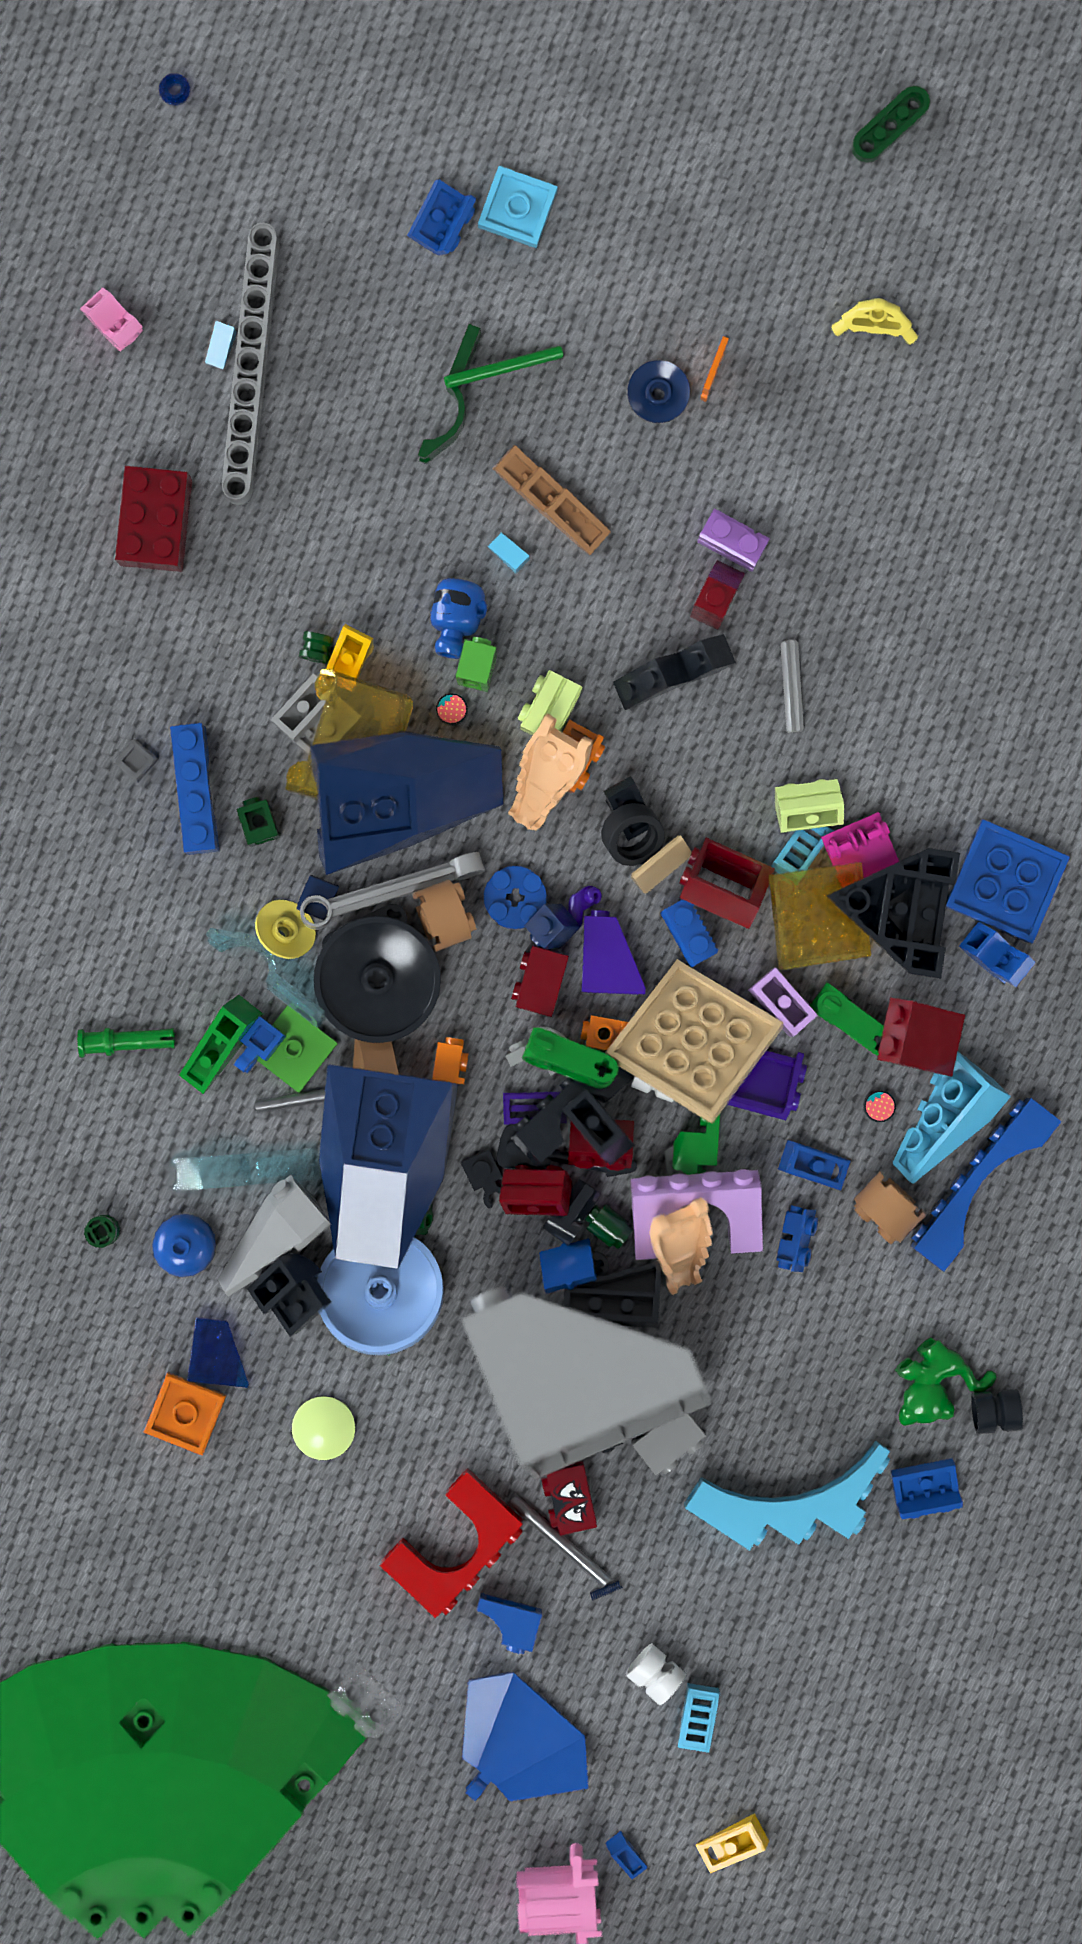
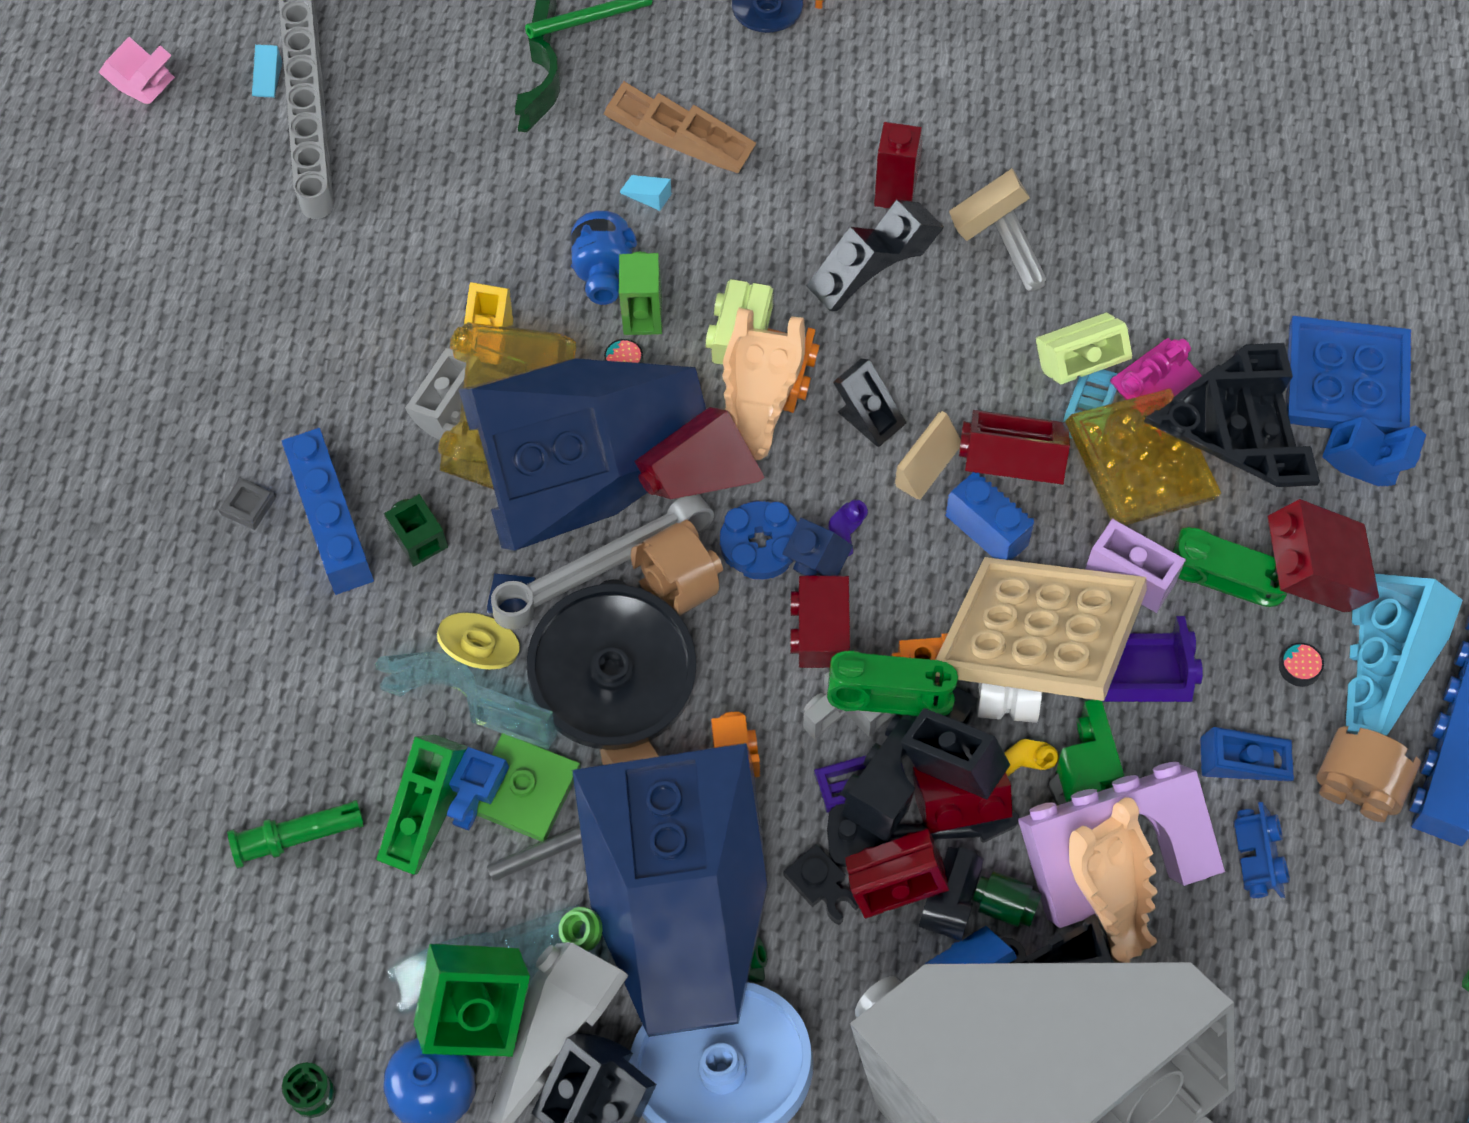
camera: 15 degrees left, 25 degrees down
(153, 518) = (220, 245): dark red brick -> none
(222, 1208) = (471, 1000): none -> green brick
(301, 1173) = (570, 928): none -> bright green plate
(316, 647) = (441, 325): dark green wheel -> none
(481, 831) = (699, 459): none -> dark red slope
(607, 958) = (900, 576): dark purple slope -> none
(624, 817) = (857, 424): black tyre -> none
(658, 1121) = (1031, 755): none -> yellow arm
(733, 540) = (899, 106): medium lavender brick -> none
(778, 649) = (988, 205): none -> tan slope

